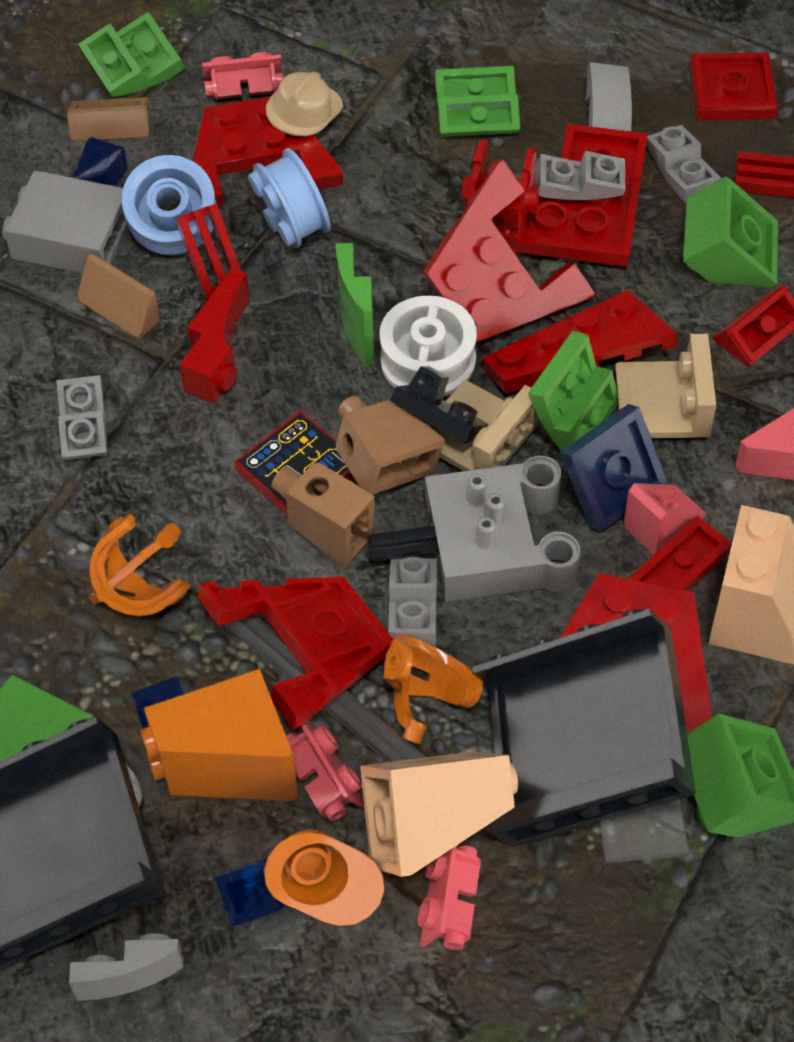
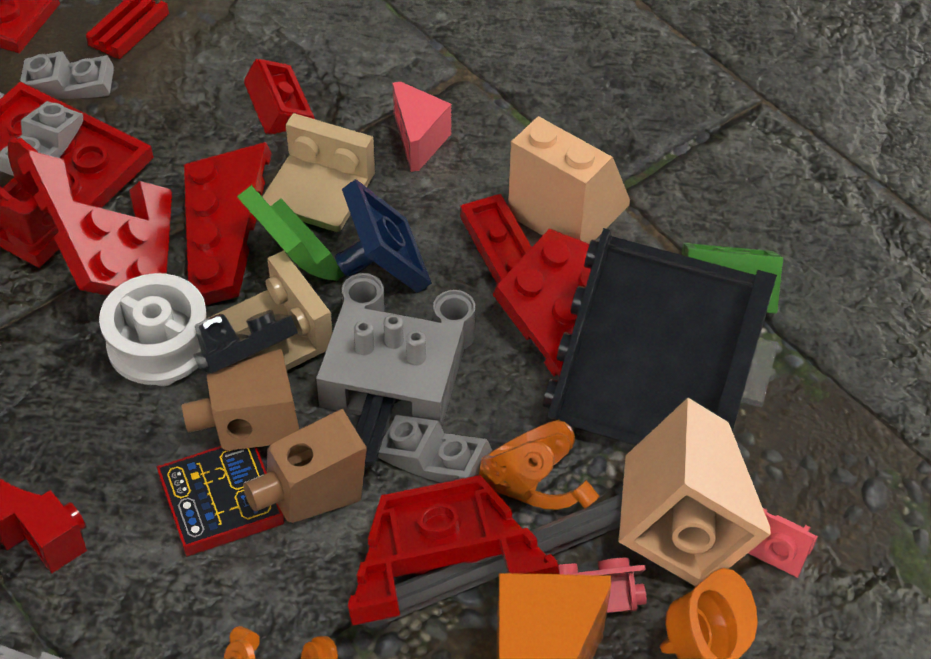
camera: 70 degrees left, 5 degrees down
(355, 304) = (70, 367): bright green slope -> none
(658, 513) = (444, 235): coral slope -> none
(730, 237) = (175, 76): bright green slope -> none

